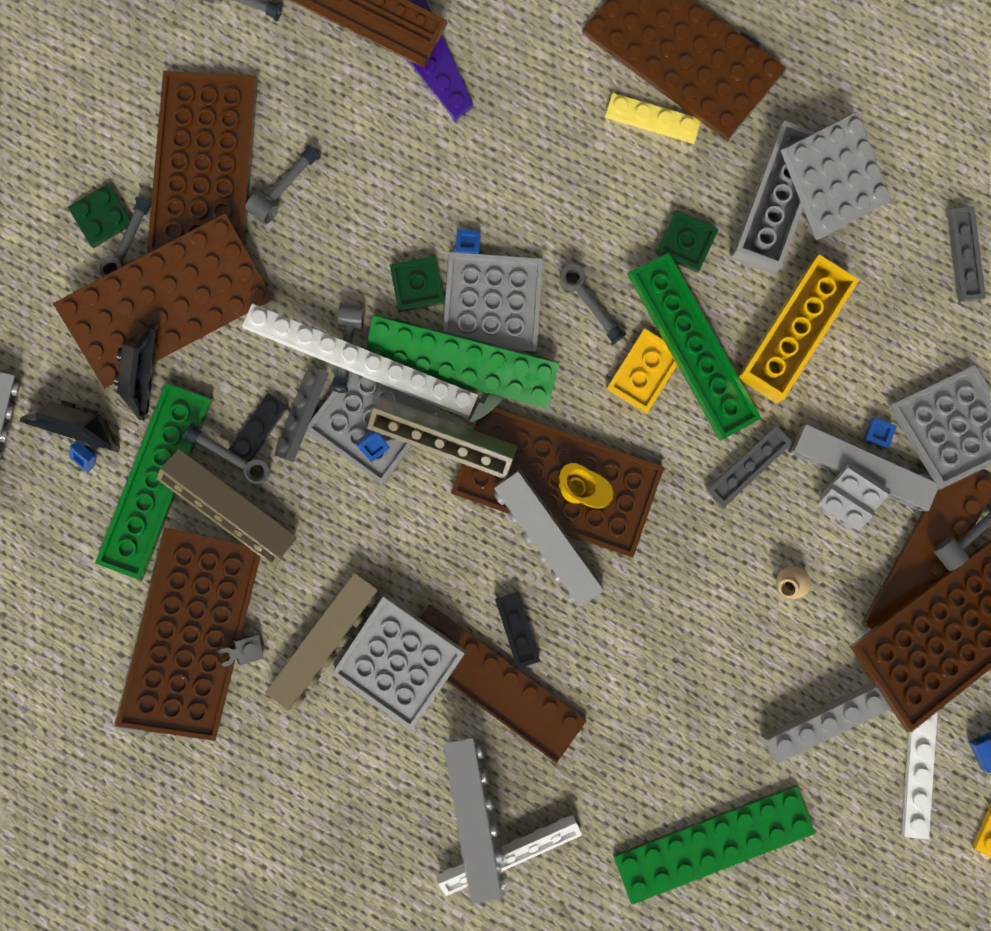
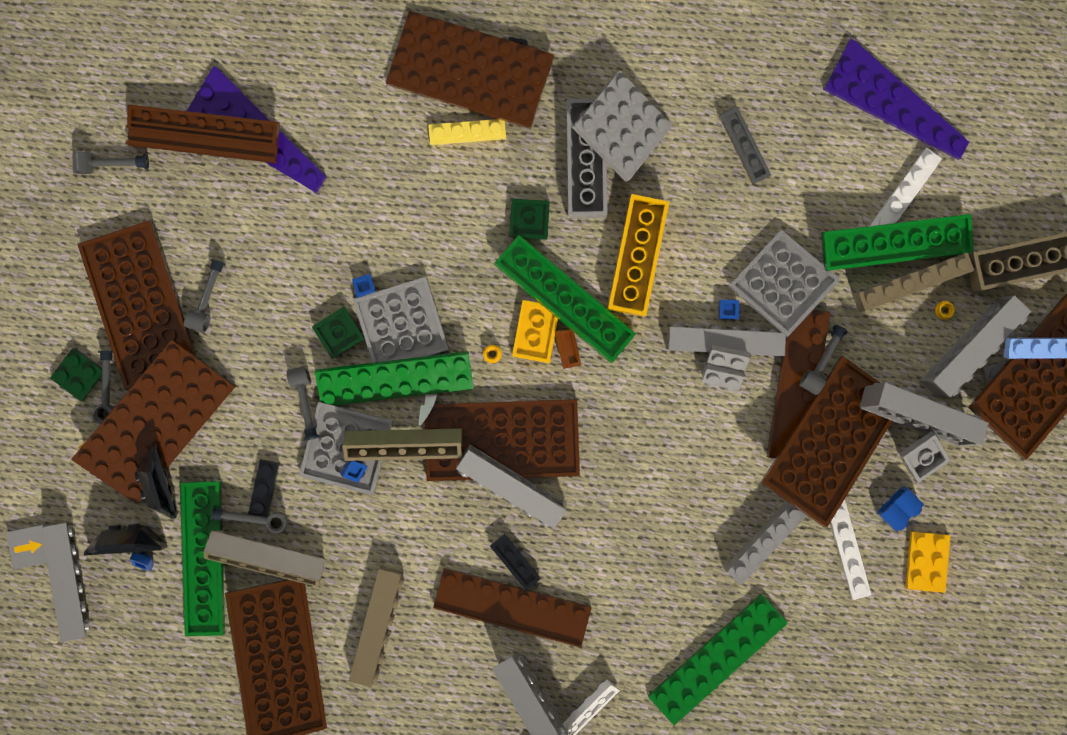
camera: 15 degrees left, 5 degrees up
(245, 650) = (321, 654): dark grey plate -> none
(301, 414) = (291, 465): dark grey plate -> none
(359, 361) = (318, 410): white plate -> none
(398, 662) = (437, 620): light grey plate -> none
(584, 370) = (486, 353): none -> yellow plate
(584, 486) = (523, 439): yellow piece -> none
(614, 333) = (502, 312): dark grey piece -> none
(675, 404) = (567, 348): none -> dark orange tile
(749, 466) = (640, 373): dark grey plate -> none
(793, 582) = (704, 448): tan piece -> none

